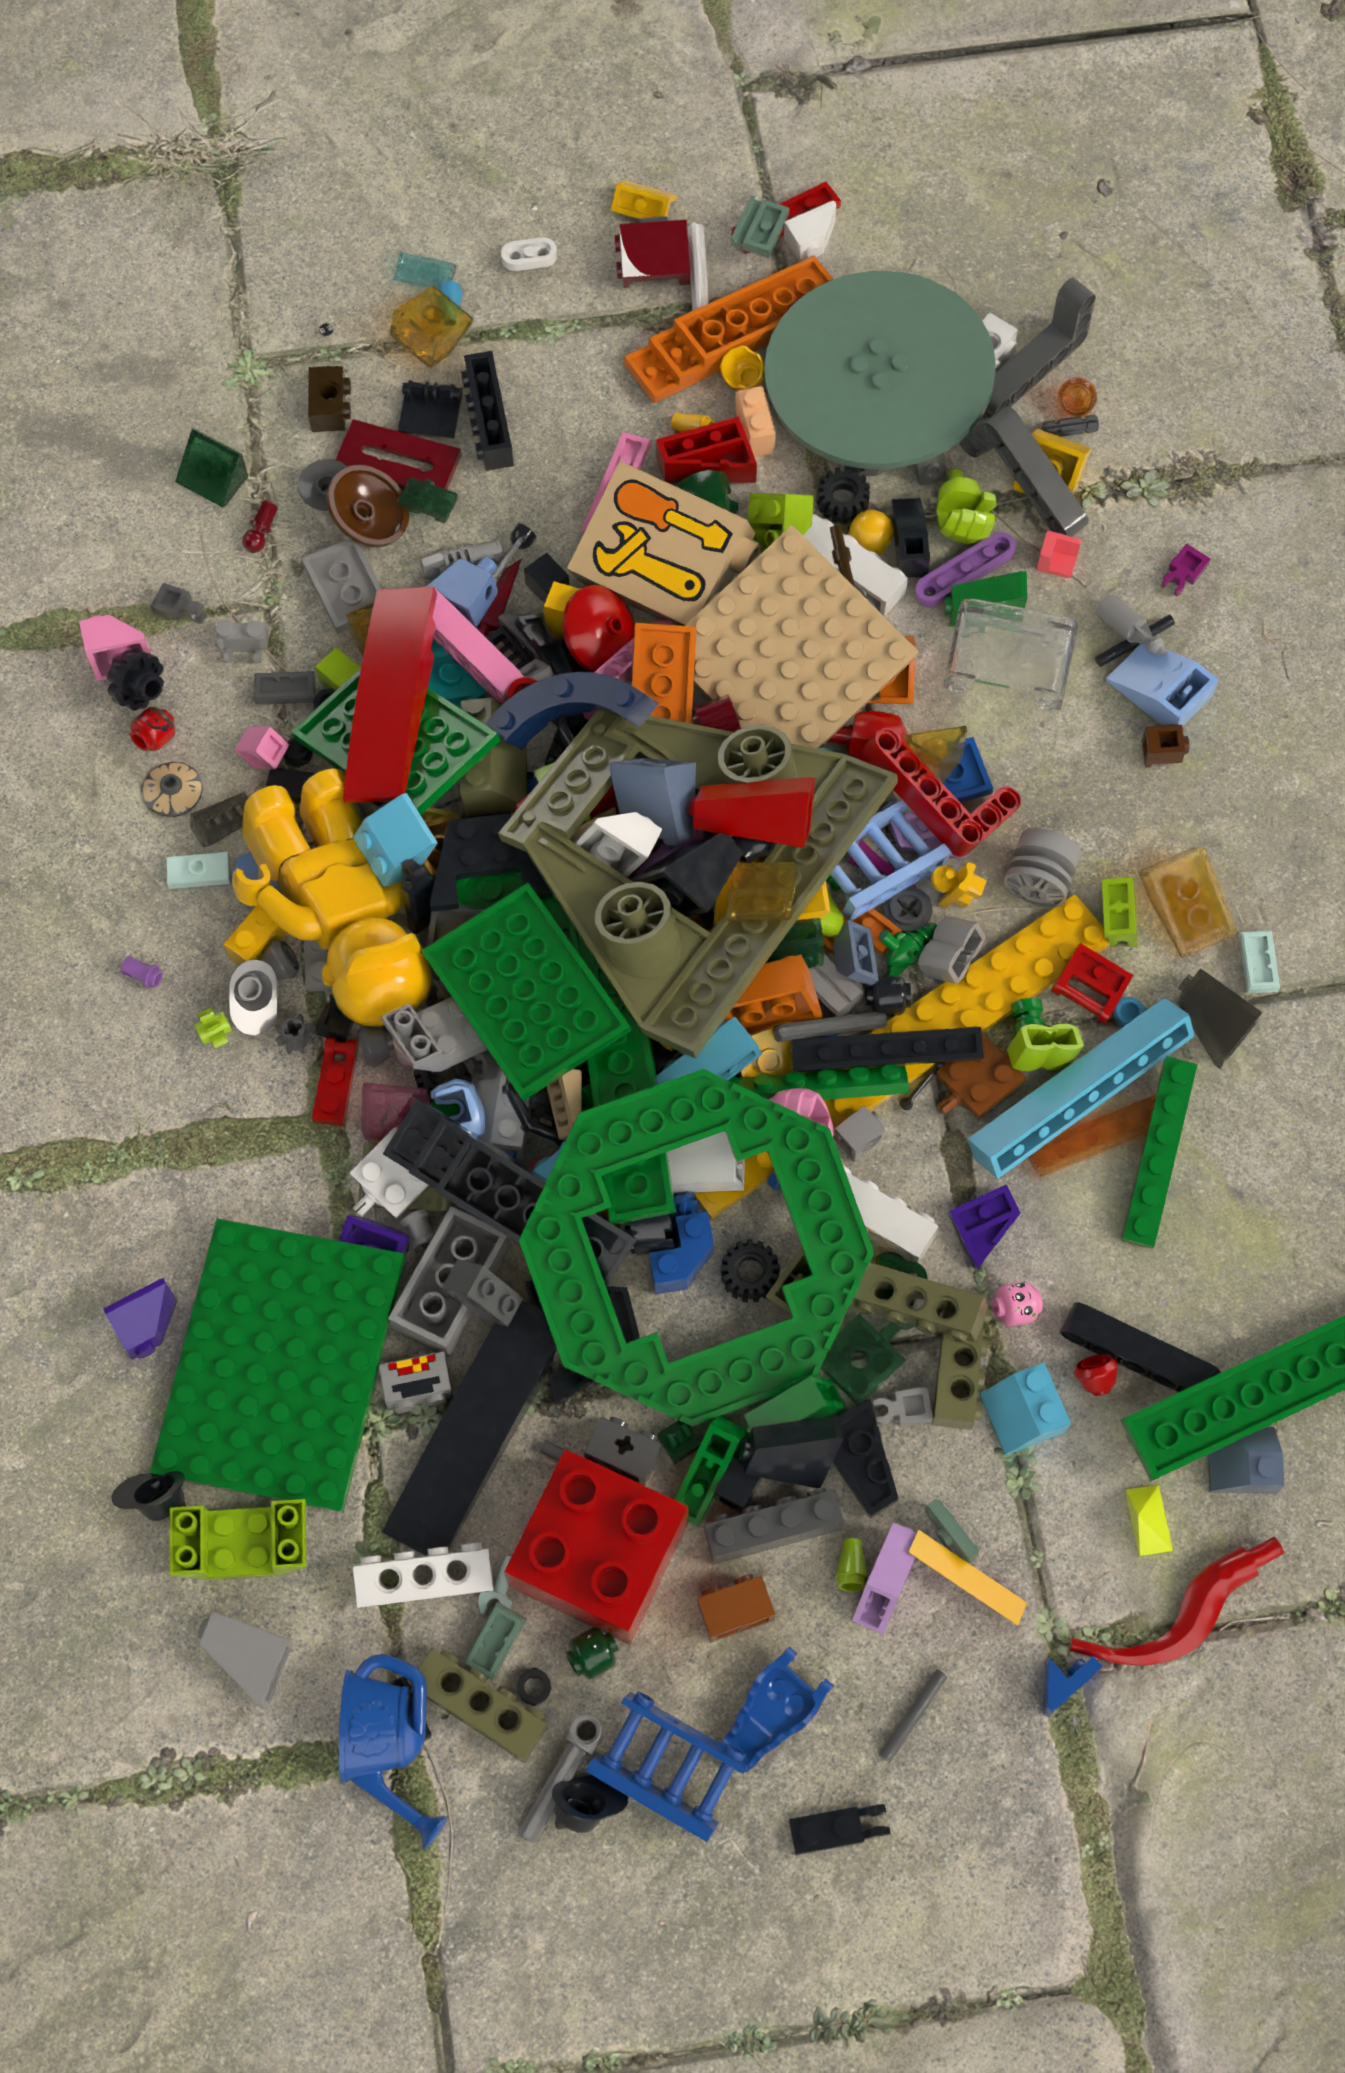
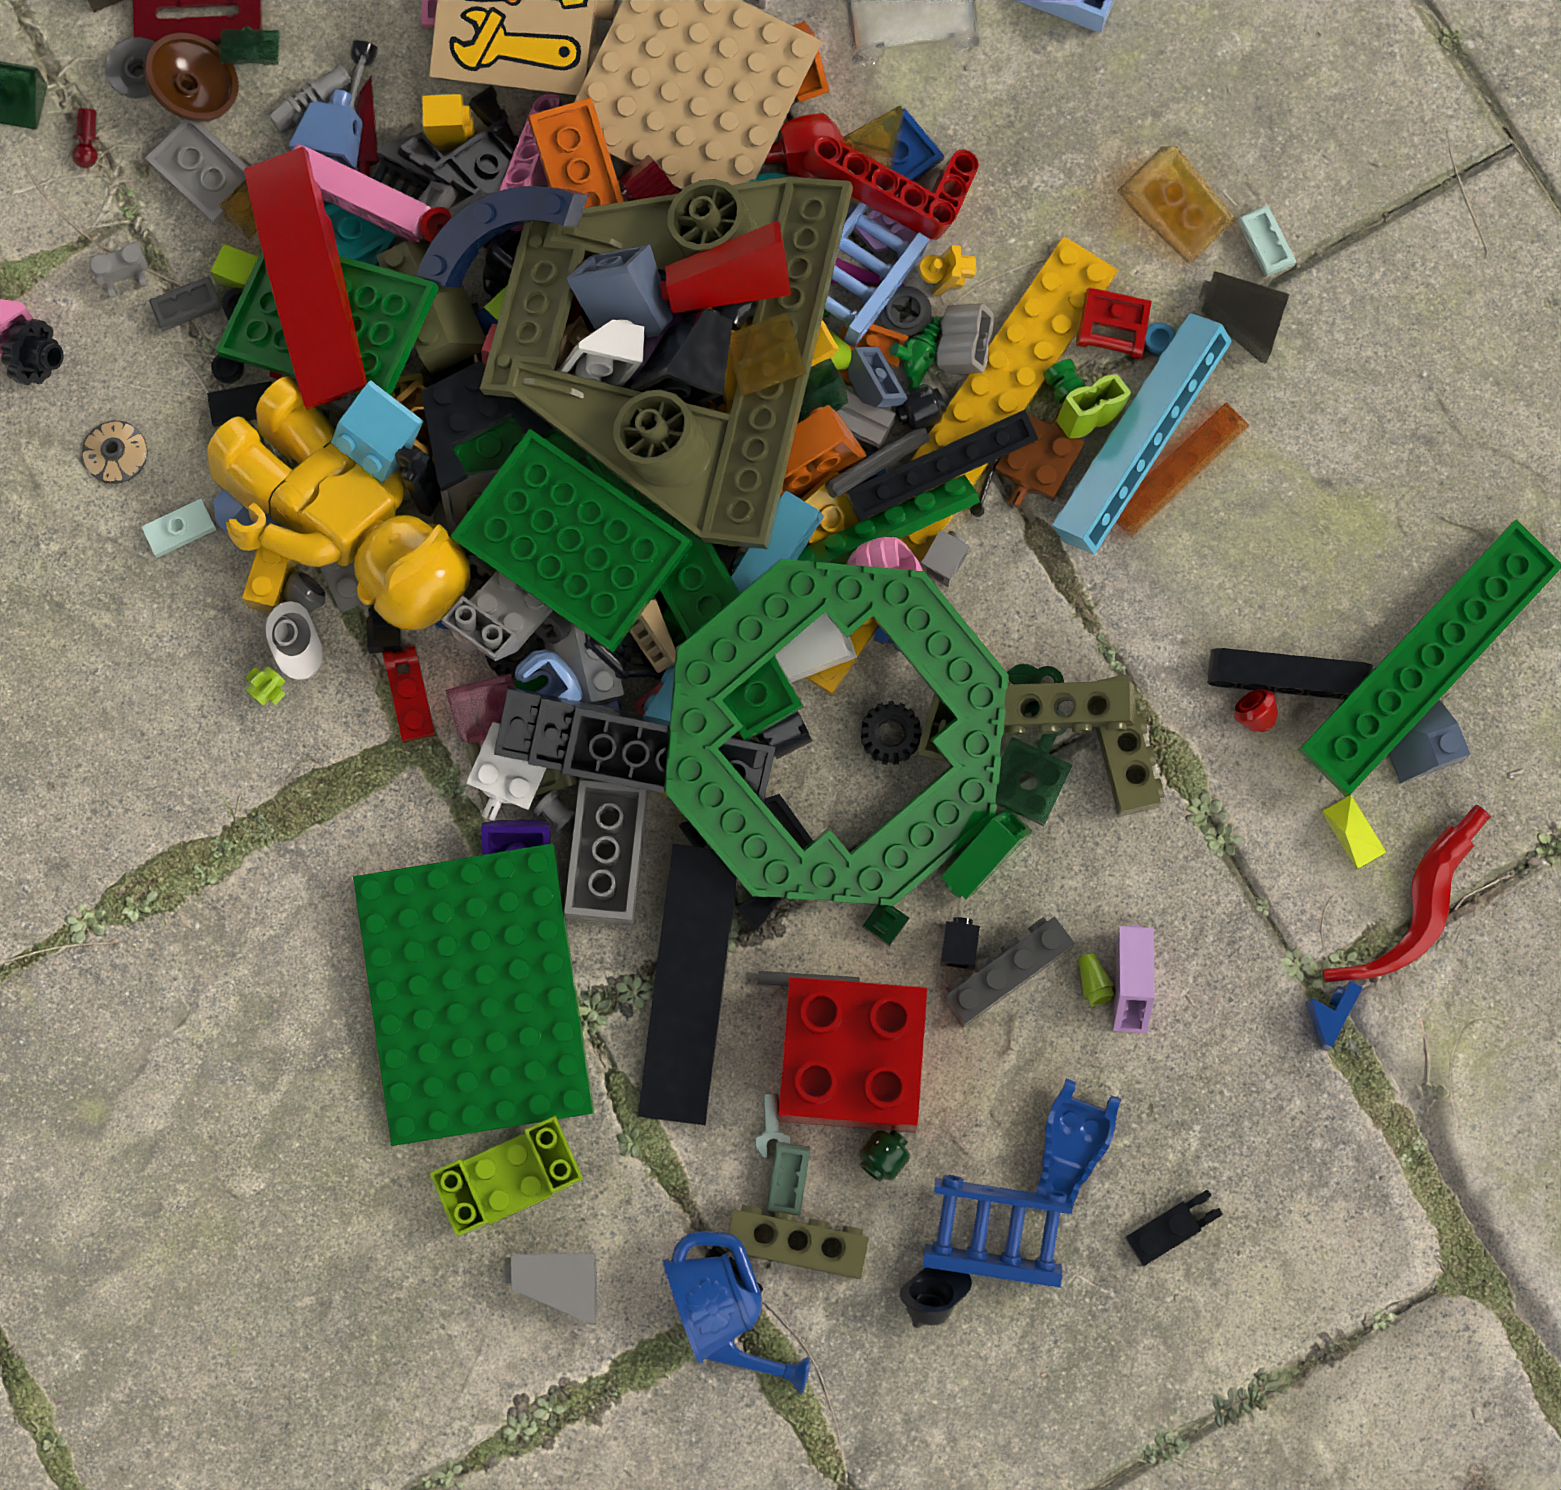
camera: 20 degrees left, 10 degrees up
(143, 1318) = (322, 1002): dark purple slope -> none
(149, 975) = (168, 654): medium lavender pin -> none
(151, 1494) = (402, 1166): black piece -> none
(152, 729) = (69, 397): red head -> none
(175, 602) = (32, 252): flat silver plate -> none
(216, 832) = (189, 472): clear smoke slope -> none
(261, 747) = (191, 377): bright pink brick -> none
(294, 1025) = (347, 670): dark grey gear -> none
(372, 1592) = (747, 1129): white brick -> none
(375, 1045) = (435, 644): dark grey cone -> none
(416, 1382) = (613, 961): brick -> none
(482, 1292) = (648, 855): dark grey brick -> none
(534, 1700) = (840, 1219): black piece -> none
(542, 574) = (405, 90): black brick -> none
(563, 1771) = (900, 1274): light grey axle -> none
(596, 625) = (484, 128): red dish -> none
(605, 1451) = (823, 962): dark grey brick -> none
(677, 1267) = (820, 756): blue brick -> none
(686, 1204) = (806, 691): blue plate -> none
(708, 1467) = (926, 938): green slope -> none
(735, 1607) = (1001, 1061): dark orange brick -> none
(792, 1451) = (1002, 894): black slope -> none
(864, 1461) = (1063, 874): black wing -> none
(891, 1222) = (1009, 635): white brick -> none
(909, 1407) = (1092, 808): light grey plate -> none
(913, 1716) = (1203, 1098): dark grey bar -> none
(950, 1532) = (1175, 914): sand green plate -> none
(968, 1577) = (1207, 951): yellow sticker -> none
(984, 1222) = (1096, 601): dark purple wing -> none
(1017, 1303) = (1157, 670): bright pink head -> none
(1025, 1409) = (1202, 770): medium azure slope -> none
(1043, 867) = (1024, 221): light grey wheel -> none
(1120, 911) = (1114, 238): lime hinge -> none
(1159, 1152) = (1239, 470): green plate -> none
(1164, 745) = (1096, 38): reddish brown brick -> none

